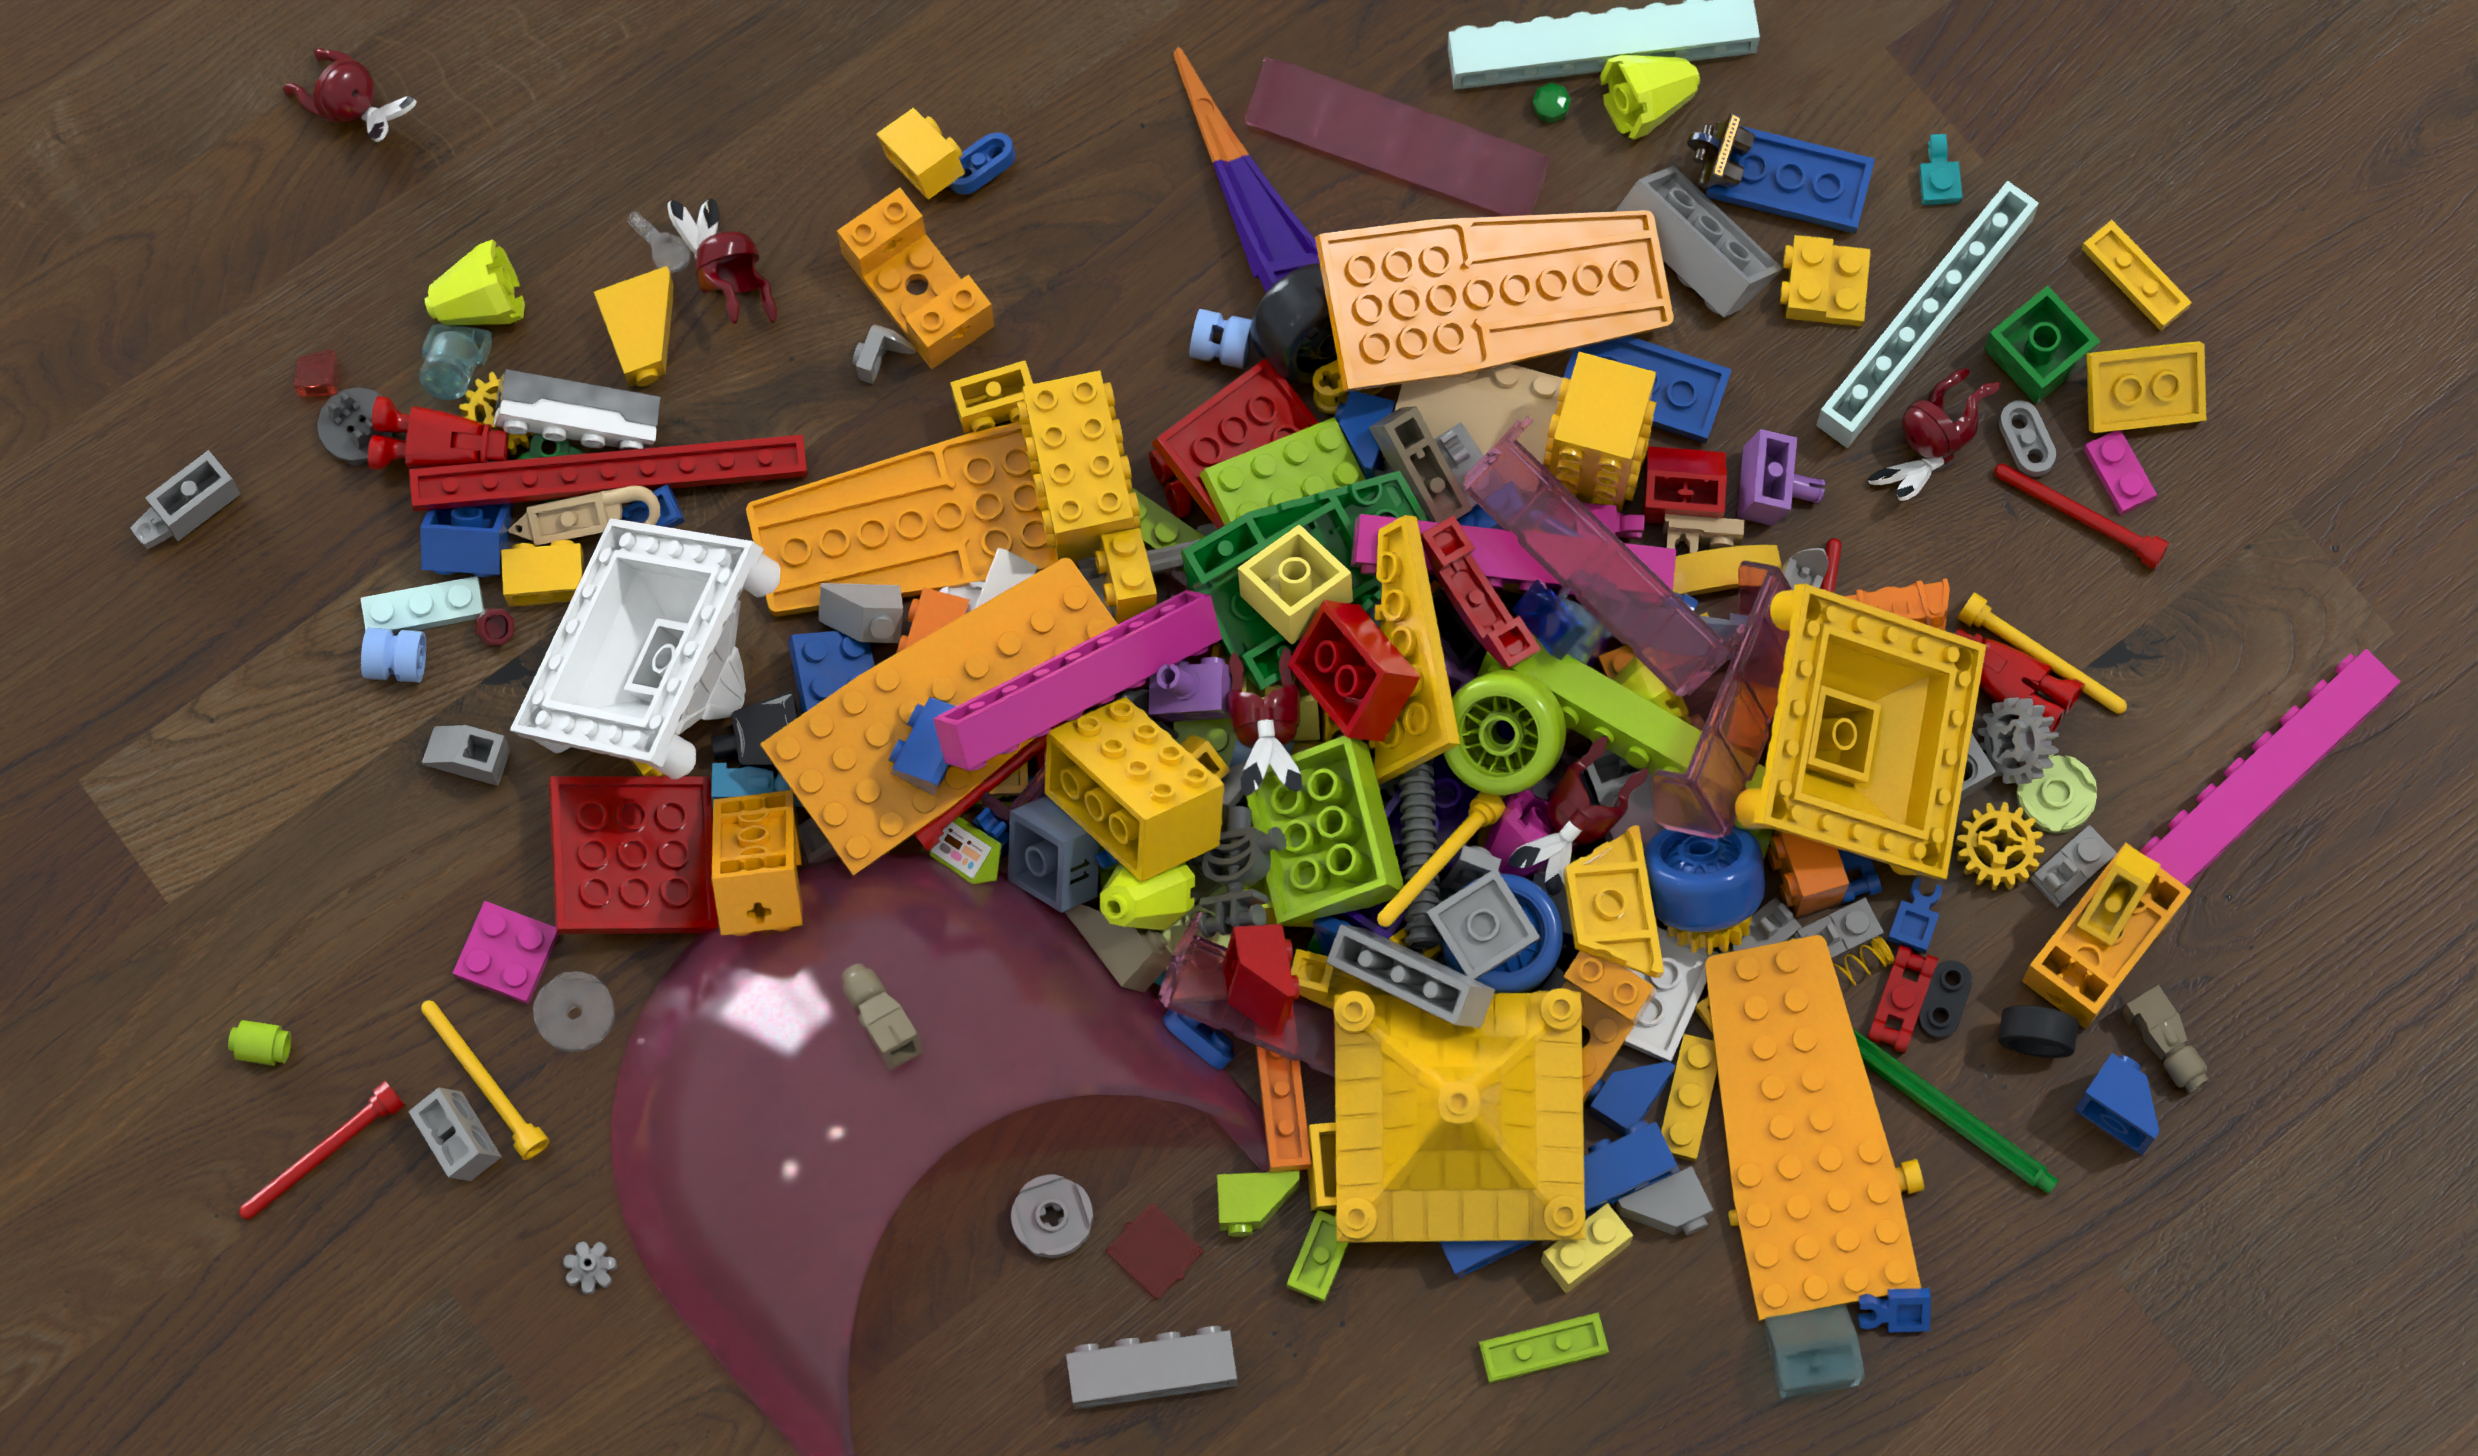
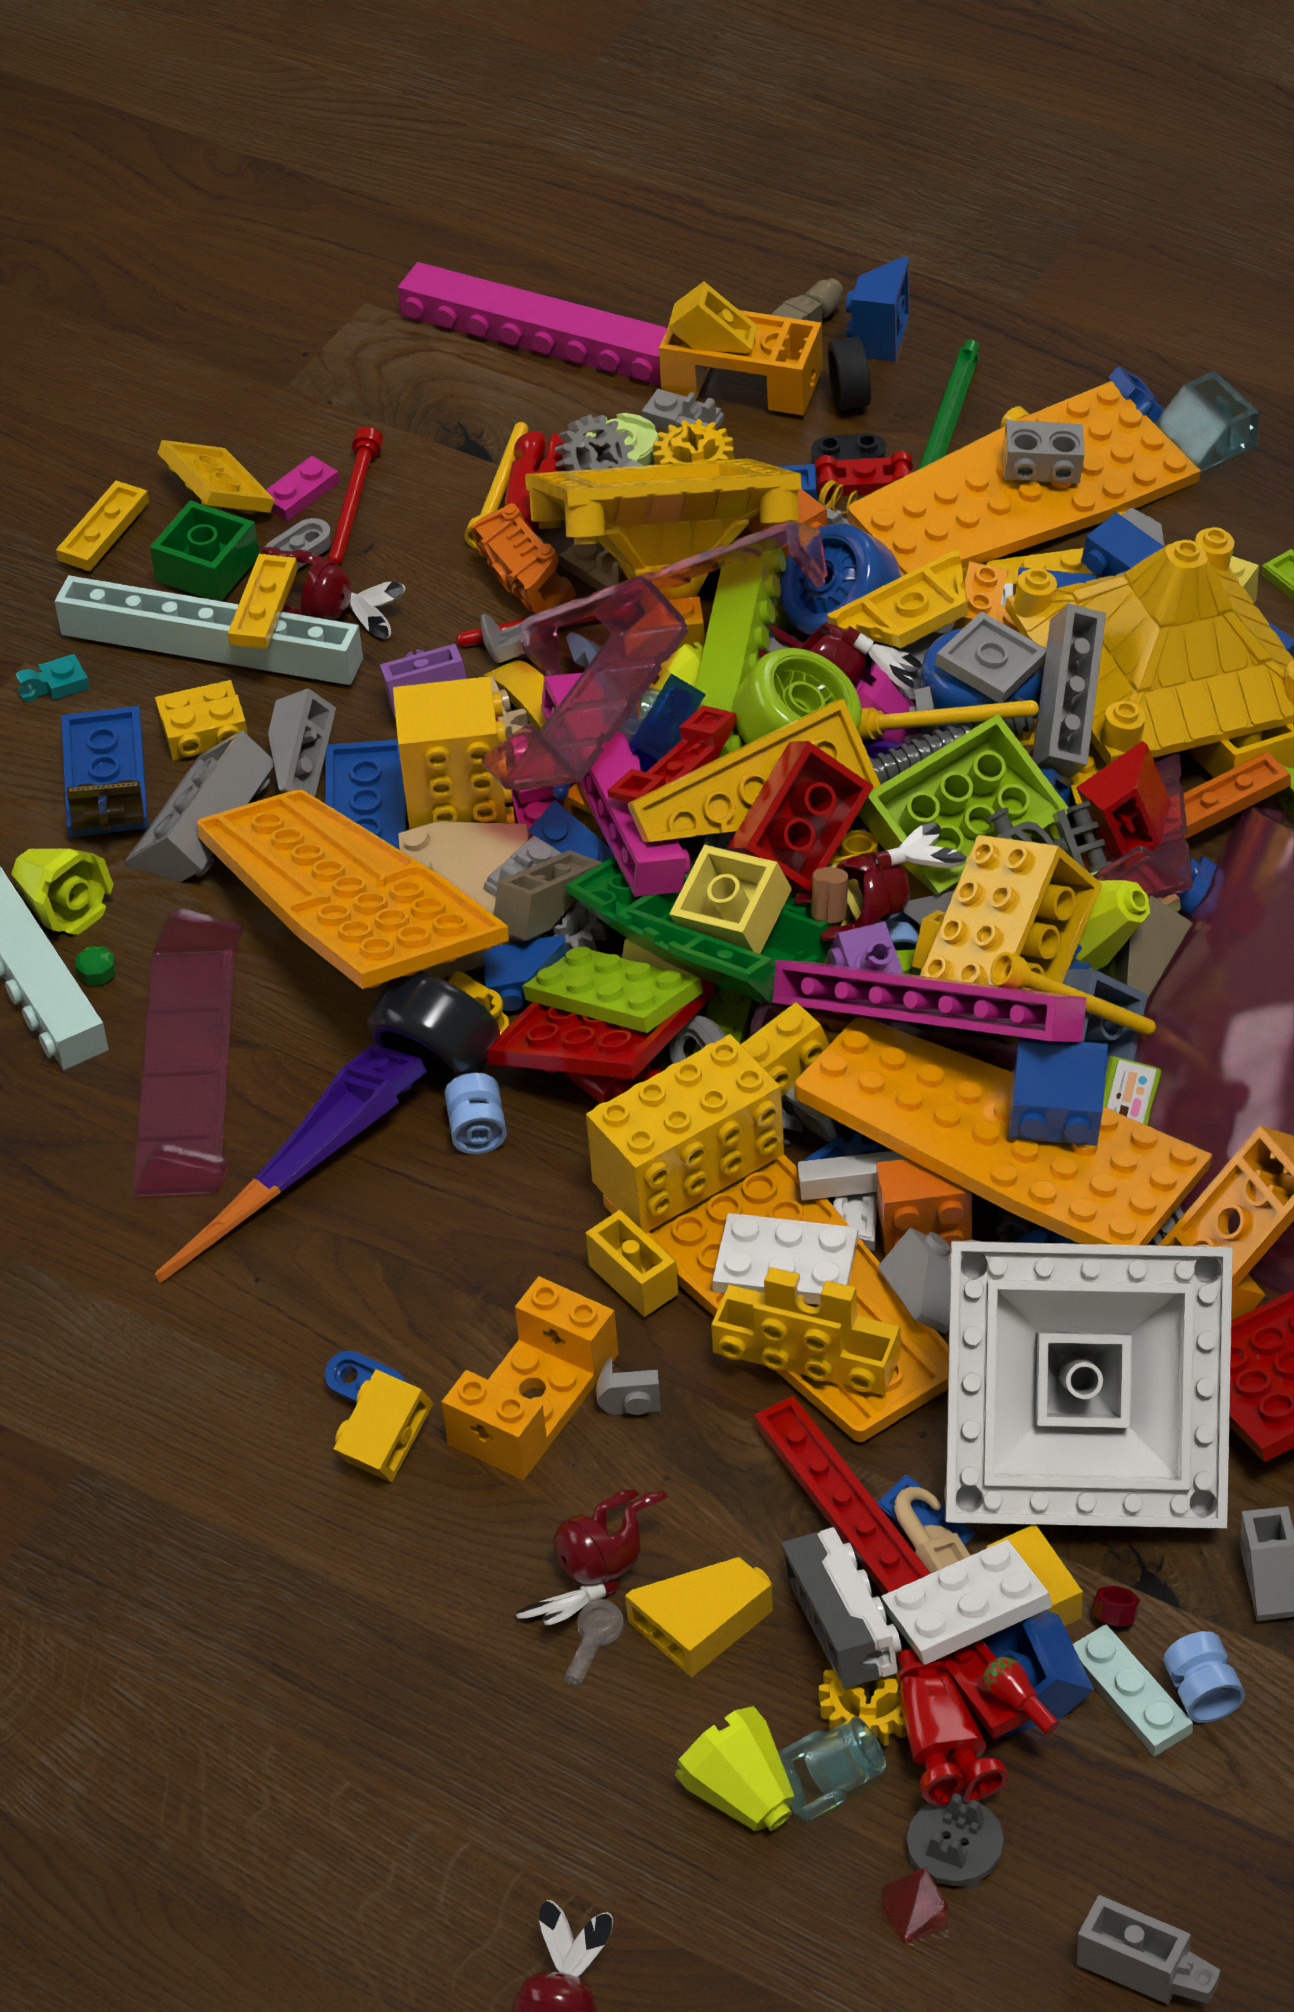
camera: 110 degrees left, 25 degrees down
(431, 490) = (1009, 1683): none -> red piece
(520, 493) = (966, 1601): none -> white plate
(839, 487) = (804, 1339): none -> yellow piece
(939, 515) = (802, 1247): none -> white plate
(1046, 739) = (1013, 972): none -> yellow piece
(1267, 671) = (829, 894): none -> medium nougat piece
(1733, 342) = (300, 739): none -> light grey slope
(1818, 1150) = (1043, 451): none -> light grey brick
(1909, 351) = (262, 601): none -> yellow plate

